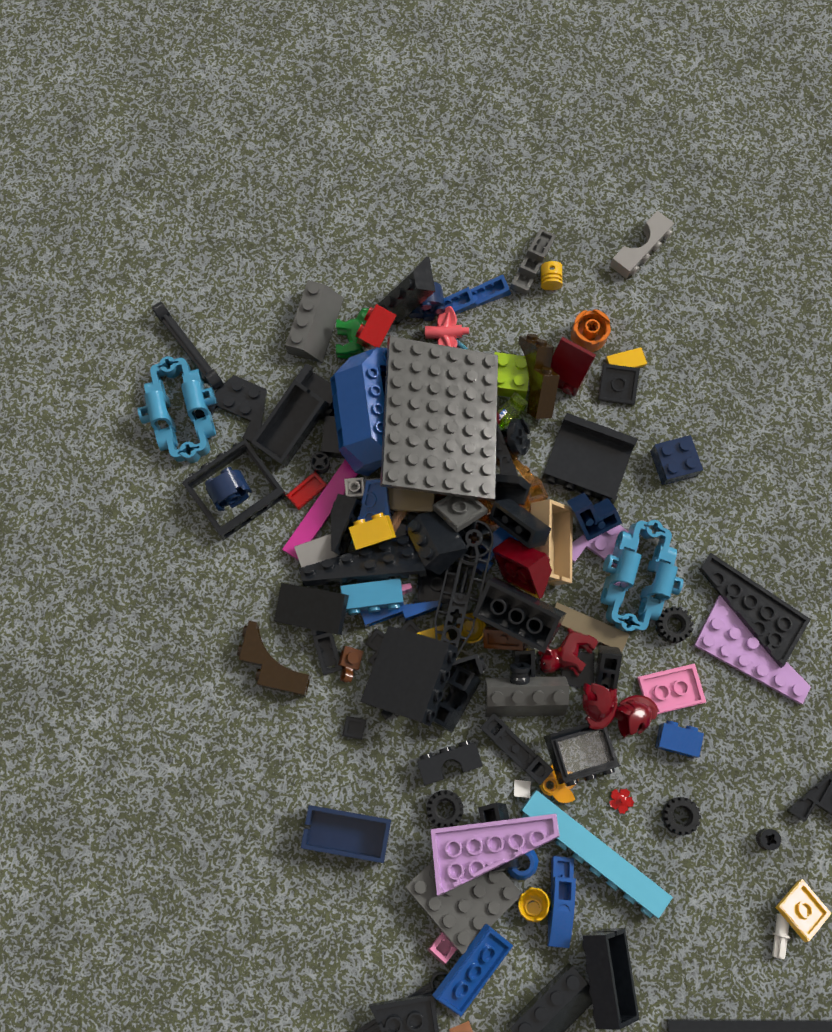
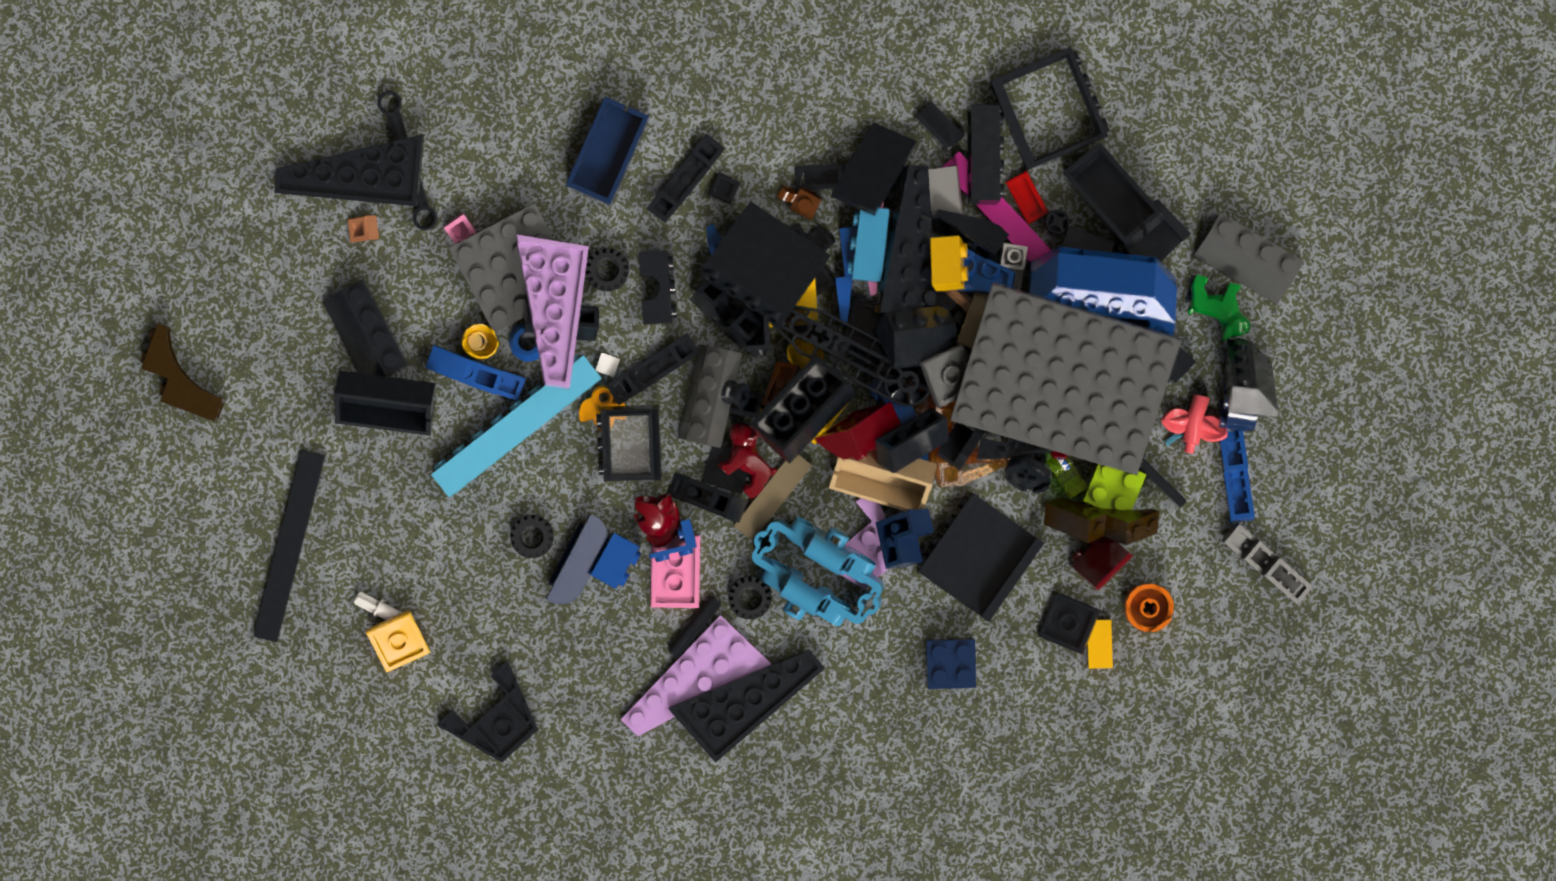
camera: 105 degrees right, 15 degrees up
(166, 318) = (1256, 89): black piece -> none
(193, 394) = (1181, 84): dark azure piece -> none
(228, 489) = (1042, 101): dark blue brick -> none
(242, 400) = (1167, 142): black wing -> none
(266, 569) = (939, 127): none -> black panel
(272, 674) = (811, 107): dark brown arch -> none
(280, 527) = (984, 154): none -> black brick
(354, 761) = (686, 178): none -> black slope
(377, 325) = (1207, 329): red brick -> none
(398, 725) = (713, 238): none -> blue slope
(472, 970) = (430, 256): blue tile -> none
(500, 338) = (1162, 484): none -> black tile
(551, 278) = (1232, 580): yellow piece -> none
(599, 705) = (675, 476): dark red helmet -> none
(621, 800) = (566, 474): red plant -> none
(628, 259) = (1236, 687): light grey arch -> none
(655, 686) = (685, 533): none -> blue bracket
(690, 772) = (578, 561): none -> dark blue brick
(710, 663) = (694, 626): none -> black axle
(763, 838) = (480, 625): black wheel -> none

